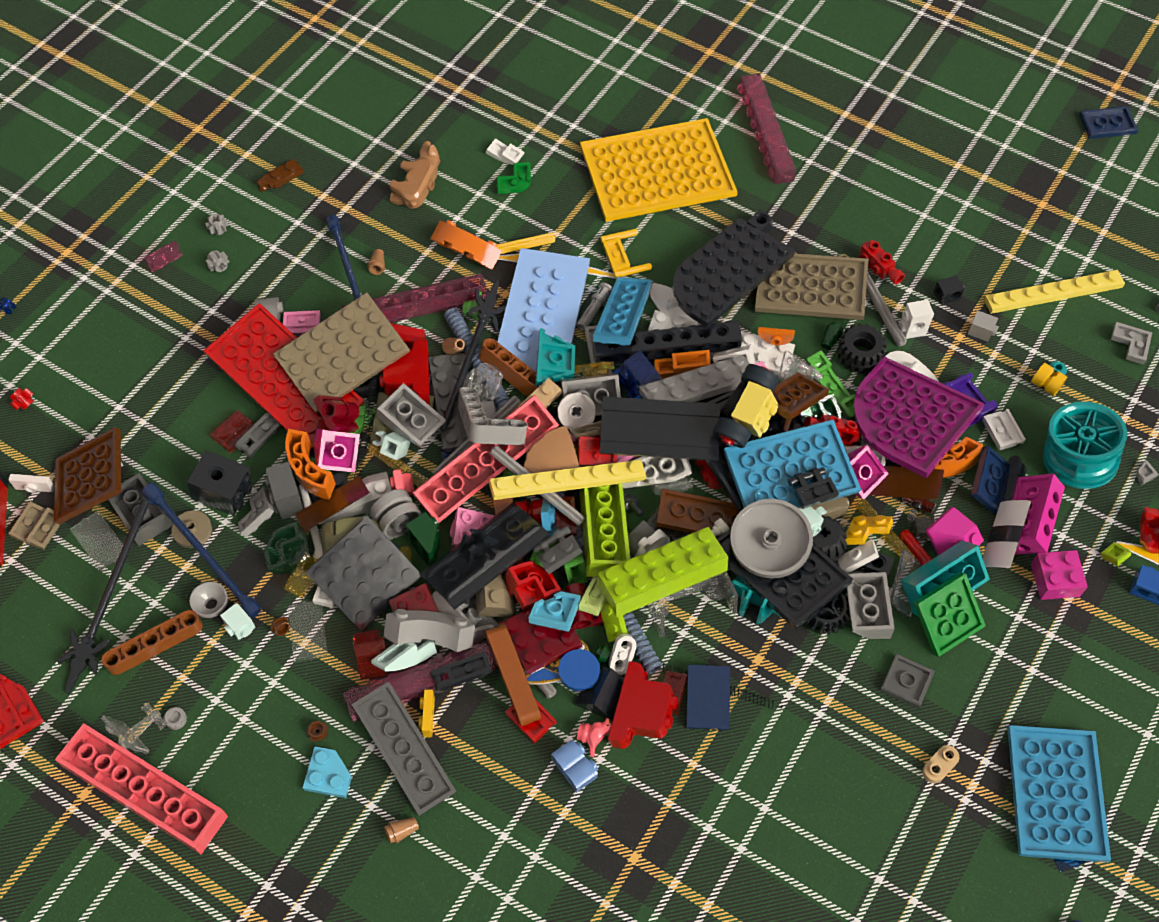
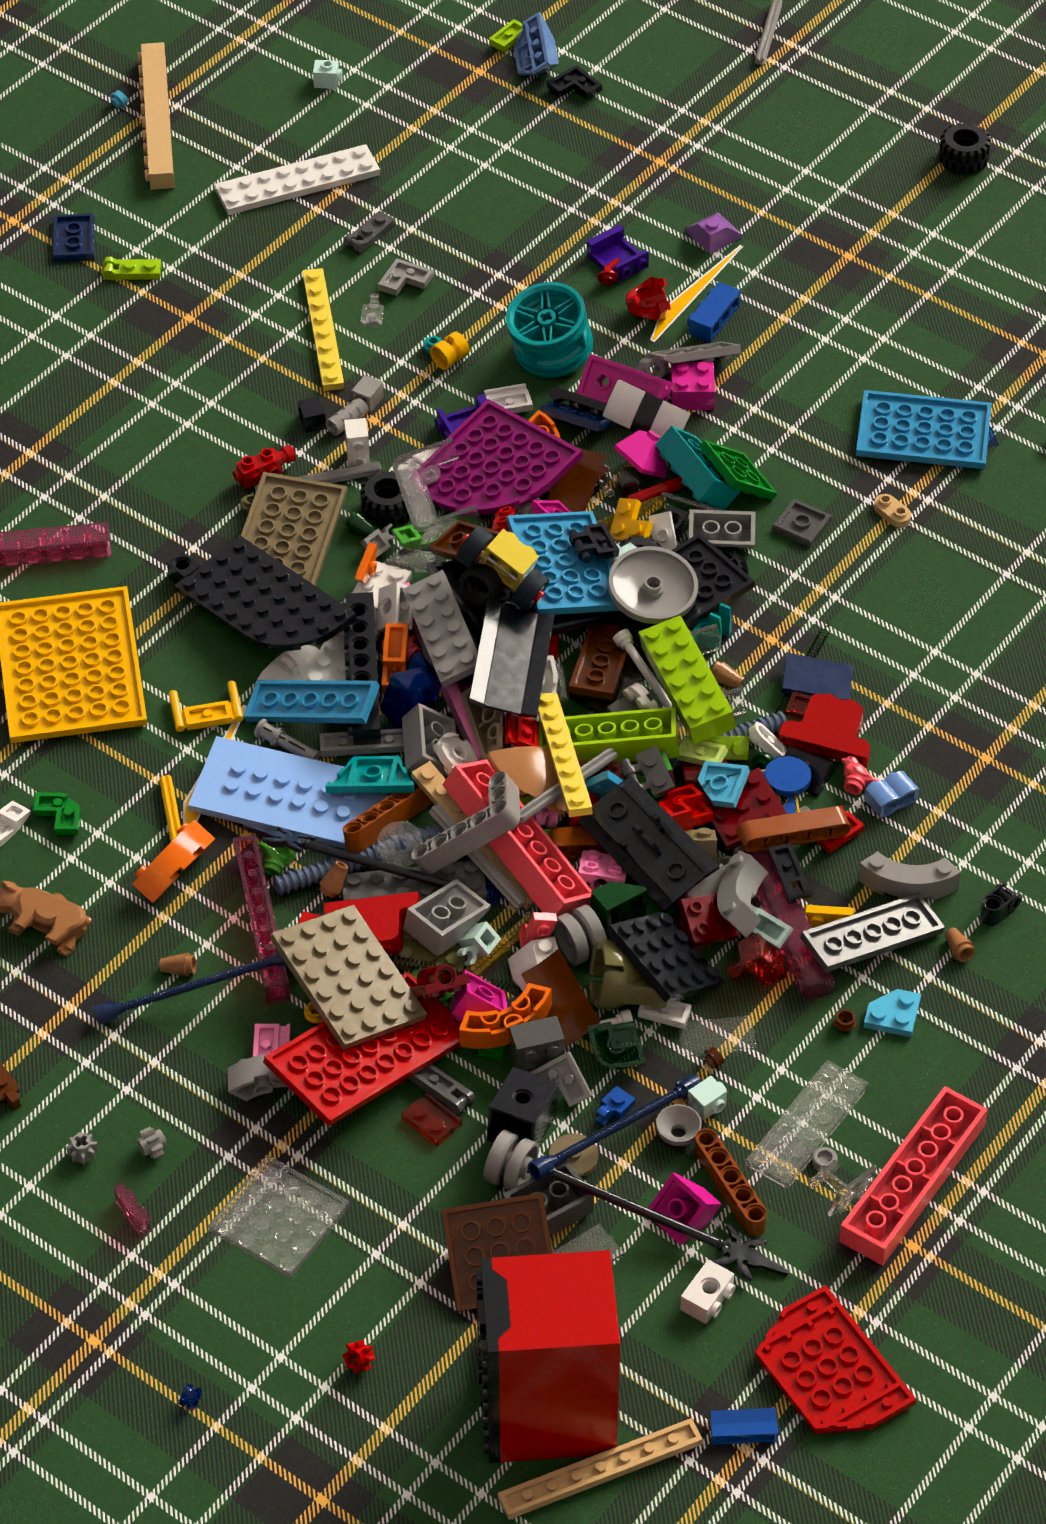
camera: 85 degrees left, 10 degrees down
(39, 622) = (709, 1279): none -> white brick
(129, 609) = (685, 1203): none -> dark pink slope
(151, 342) = (279, 1216): none -> clear plate
(172, 478) = (509, 1160): none -> light grey wheel
(213, 703) = (807, 1124): none -> clear plate
(240, 556) = (615, 1104): none -> blue plate
(299, 581) = (659, 1034): clear yellow slope -> none
(452, 870) = (999, 904): none -> black piece
(468, 776) = (904, 880): none -> light grey brick
(599, 368) = (394, 733): clear yellow plate -> none
(703, 619) = (726, 675): none -> medium nougat cone
(812, 345) = (380, 538): none -> light grey plate
(861, 360) = (415, 472): none -> clear windscreen
(953, 314) = (354, 410): none -> light grey axle
(1082, 323) = (373, 312): none -> clear plate
(1084, 161) = (131, 269): none -> lime plate
(1094, 567) = (702, 352): none -> light grey hinge
(1116, 554) = (668, 339): lime tile -> none

